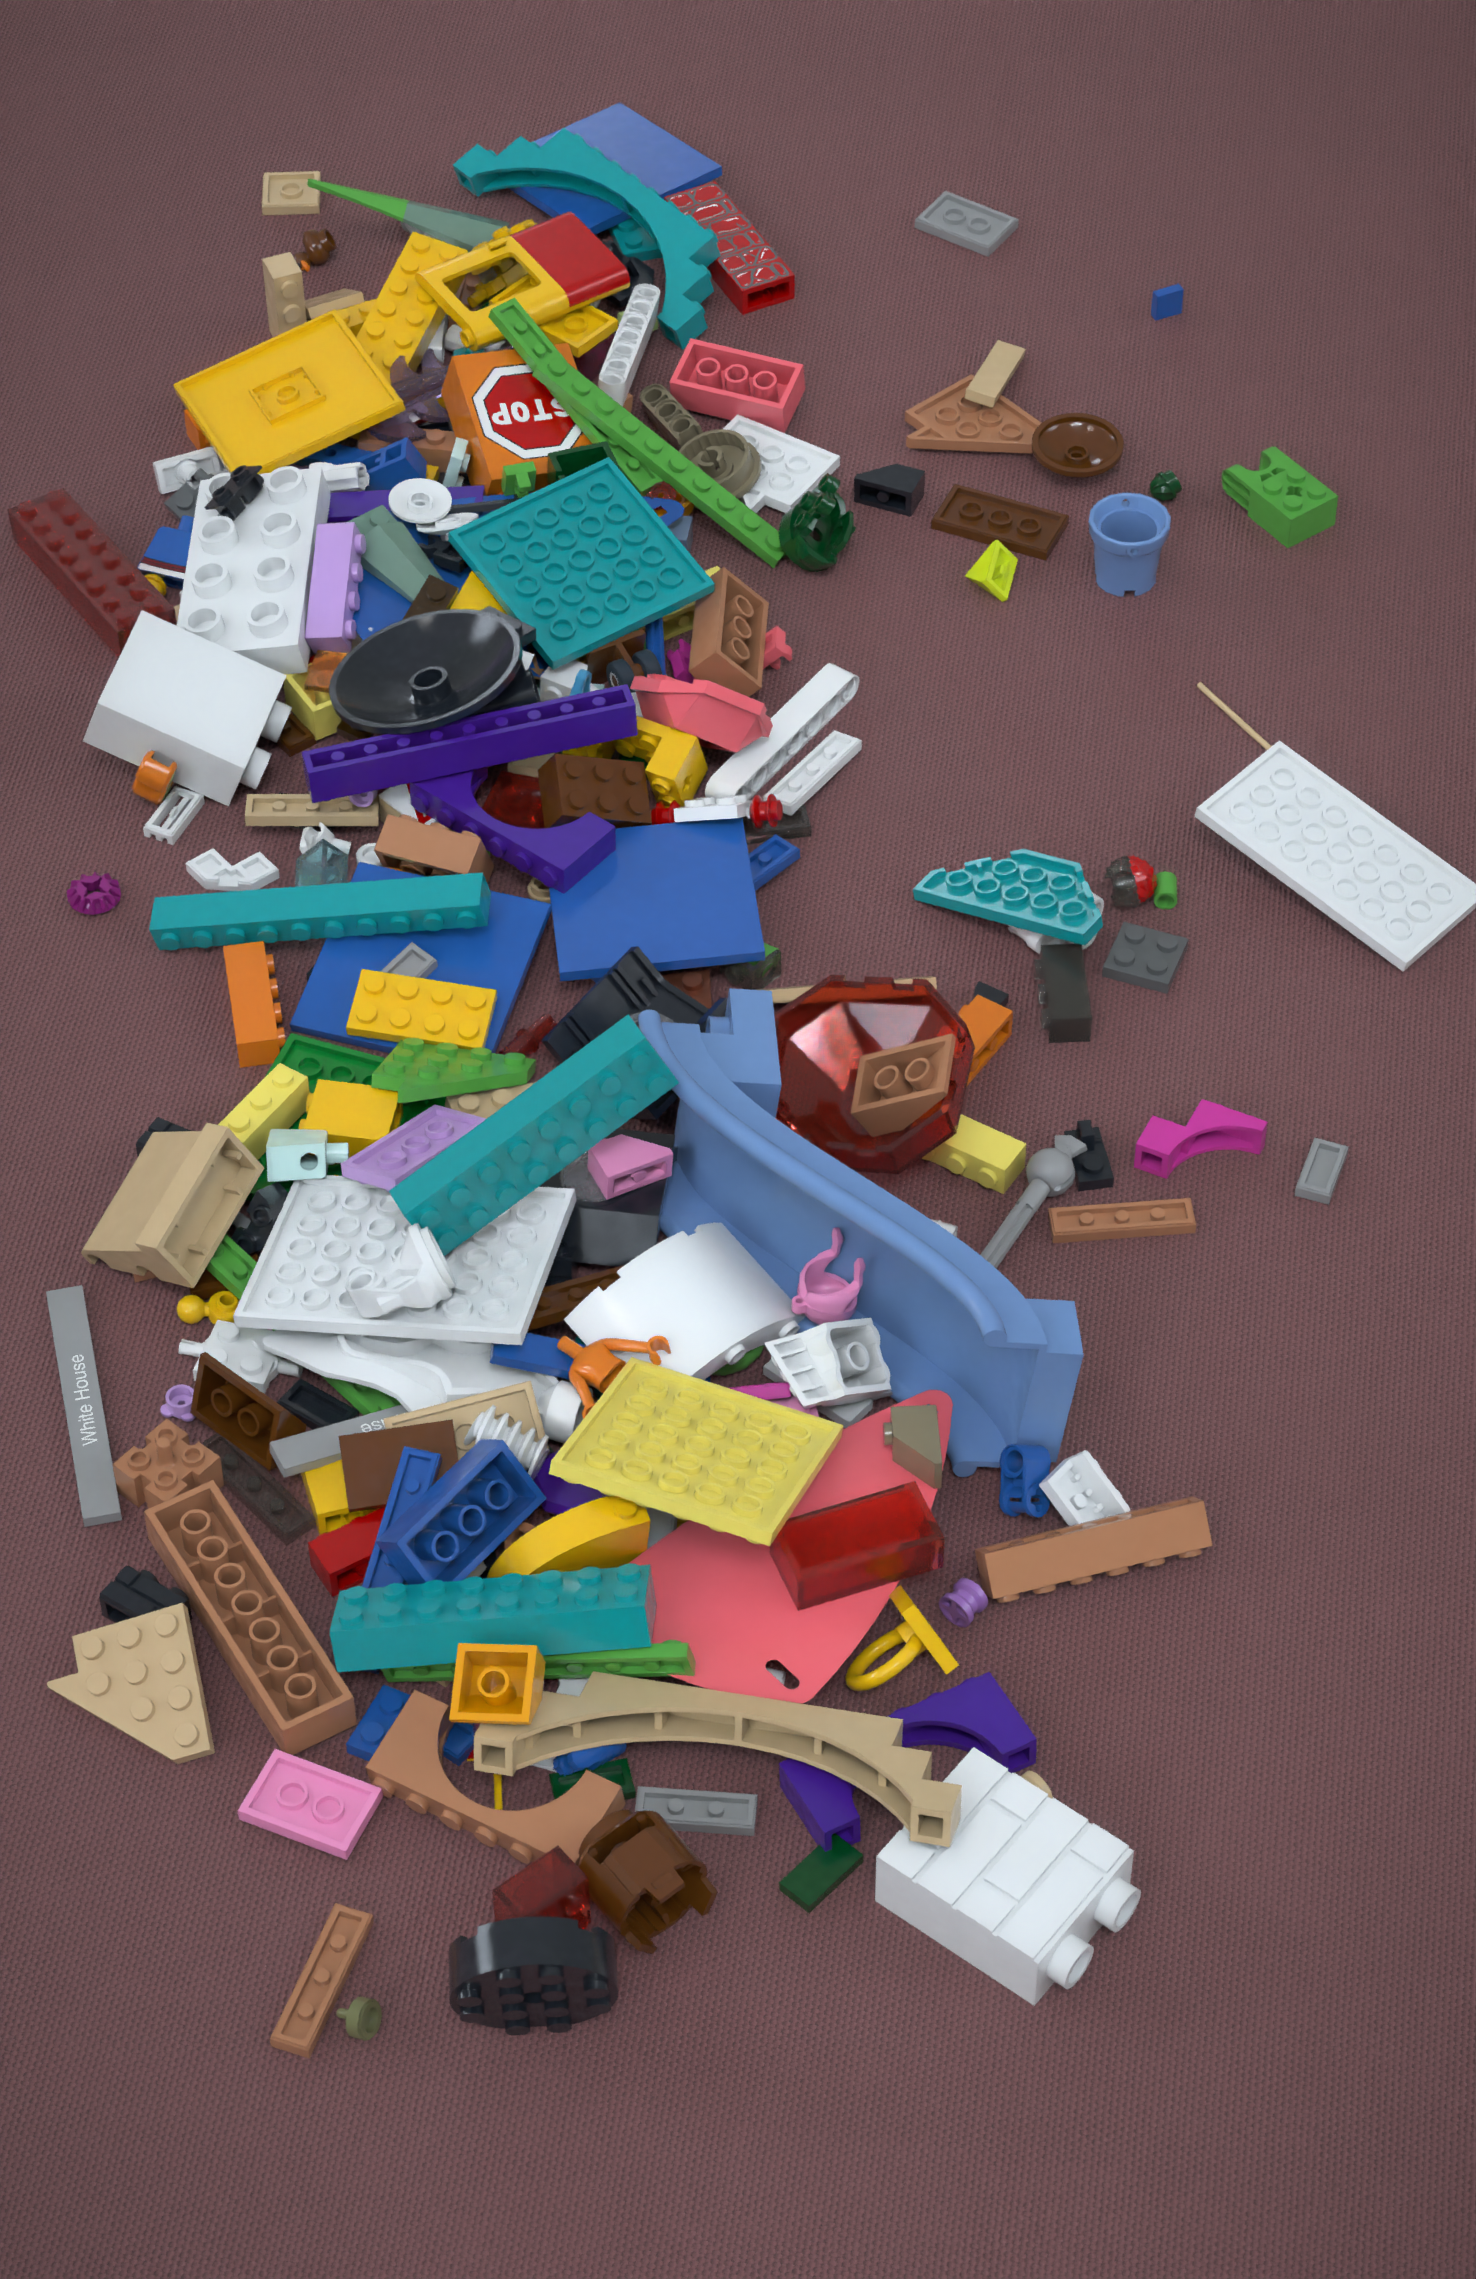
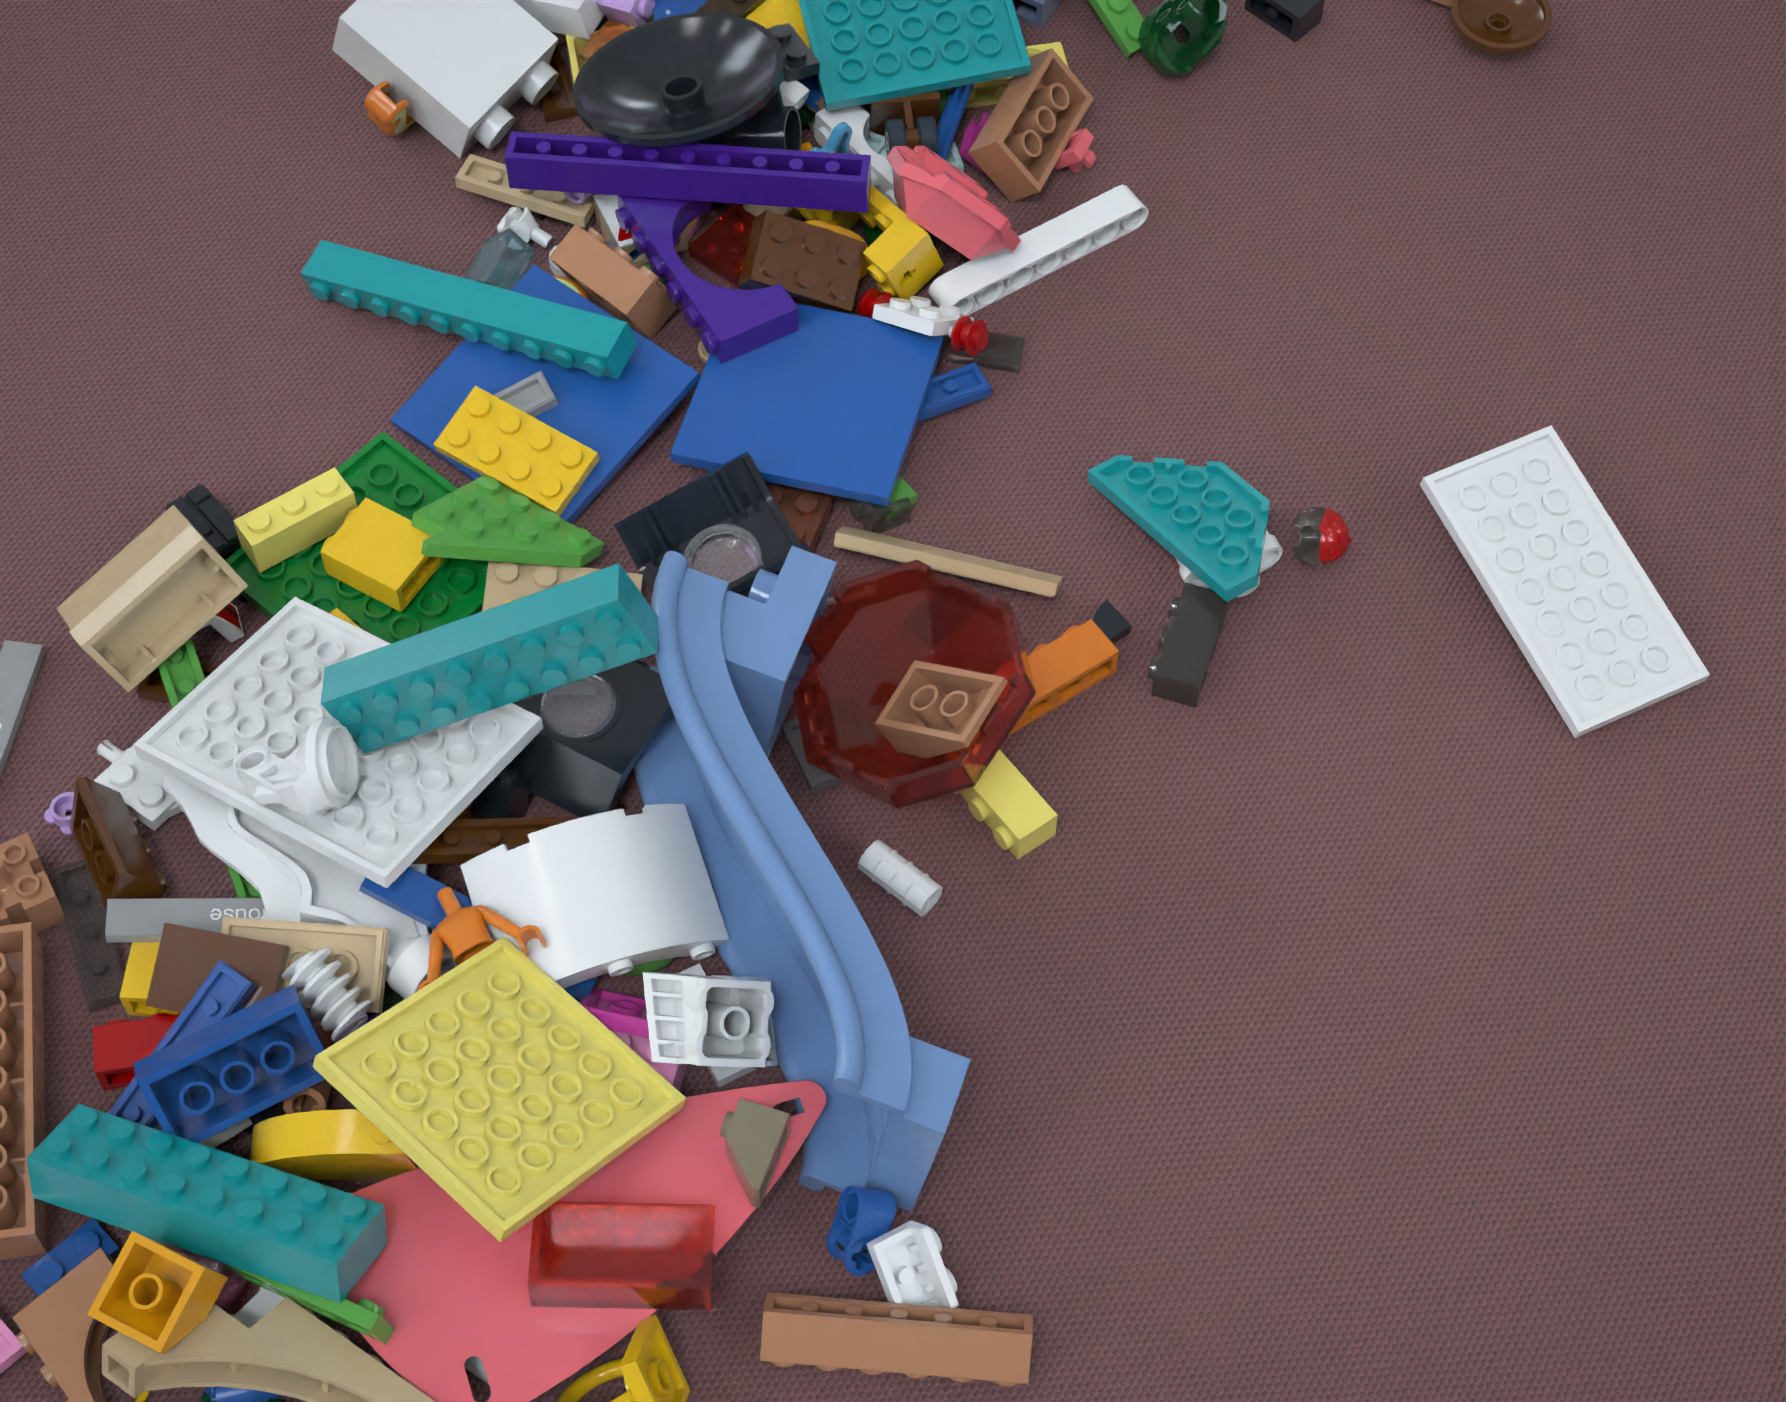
camera: 20 degrees right, 10 degrees up
(96, 901) = (279, 225): magenta gear -> none
(179, 816) = (404, 156): white tile -> none
(217, 874) = (433, 241): white tile -> none
(220, 1307) = (133, 709): yellow plate -> none
(252, 1003) = (364, 385): orange brick -> none
(263, 1214) = (233, 631): black cylinder -> none
(289, 1158) = (302, 578): light aqua torso -> none
(315, 1406) = (196, 867): black tile -> none
(409, 1147) = (412, 607): lavender plate -> none
(528, 1039) = (606, 517): clear red axle -> none
(627, 1164) = (610, 707): bright pink slope -> none
(814, 771) = (1050, 302): white tile -> none
(825, 1295) = (751, 925): bright pink hair -> none
(963, 1602) = (729, 1350): medium lavender wheel -> none
(992, 517) = (1384, 76): reddish brown tile -> none
(994, 570) = (1351, 129): neon yellow slope -> none
(1049, 1175) = (1067, 857): light grey piece -> none
(1093, 1165) = (1125, 849): black hinge -> none
(1121, 1220) = (1126, 937): nougat tile -> none
(1128, 541) = (1498, 140): medium blue piece -> none
(1145, 957) = (1300, 629): dark grey plate -> none
(1165, 486) = (1575, 86): dark green plate -> none
(1166, 890) = (1357, 557): bright green hinge -> none
(1210, 1128) = (1271, 859): dark pink arch -> none
(1234, 716) = (1529, 373): tan axle -> none
(1282, 497) = (1696, 137): bright green brick -> none
(1321, 1171) = (1372, 952): light grey tile -> none

